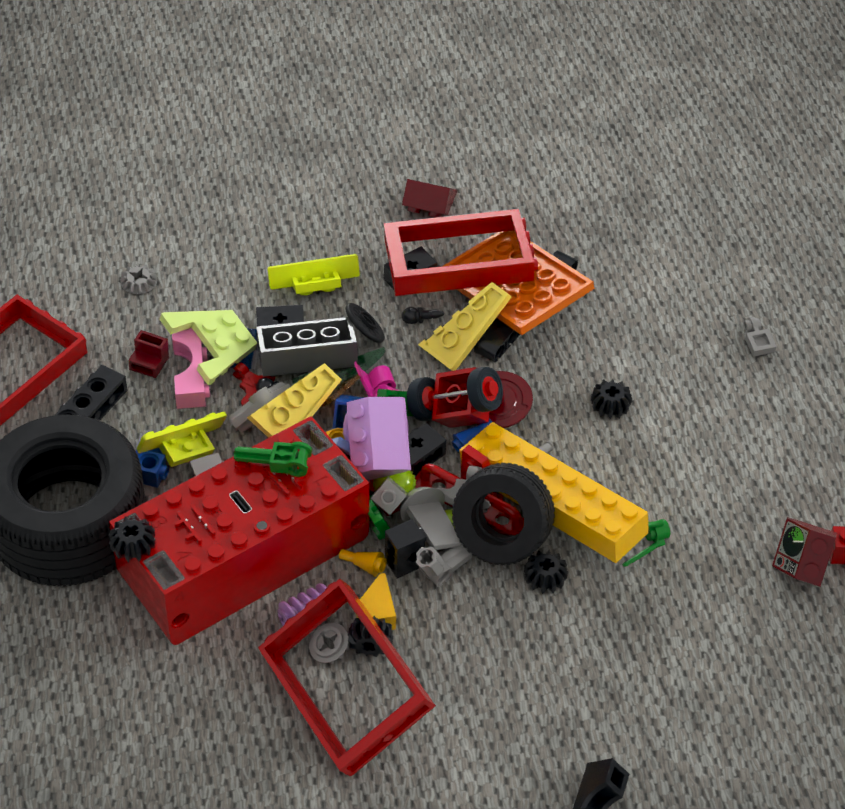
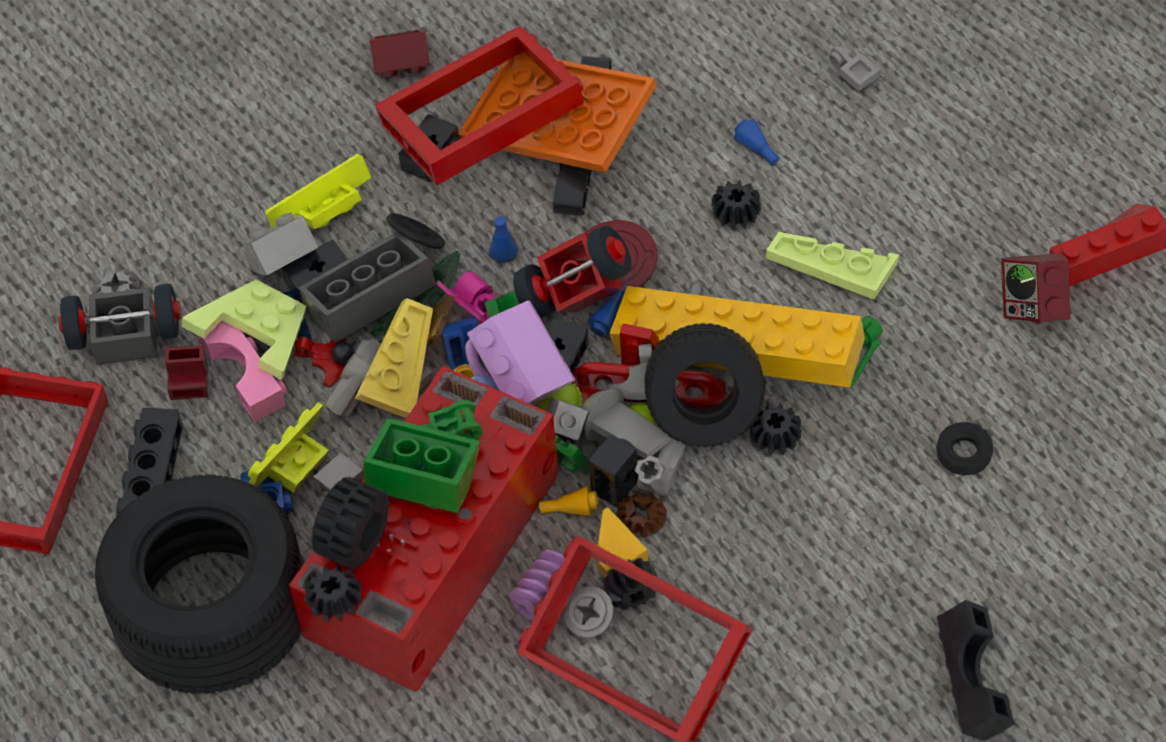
camera: 20 degrees left, 5 degrees up
(122, 301) = (121, 322): none -> dark grey brick
(169, 492) = (350, 522): none -> black tyre
(246, 475) = (421, 464): none -> green slope
(261, 292) = (279, 245): none -> light grey slope
(403, 597) = (638, 524): none -> reddish brown gear
(412, 315) = (460, 199): black bar -> none
(423, 358) = (502, 246): none -> blue cone
(459, 335) = (536, 187): light yellow wing -> none
(651, 355) = (751, 136): none -> blue cone
(661, 471) = (846, 268): none -> yellowish green wing
(686, 634) = (969, 432): none -> black tyre

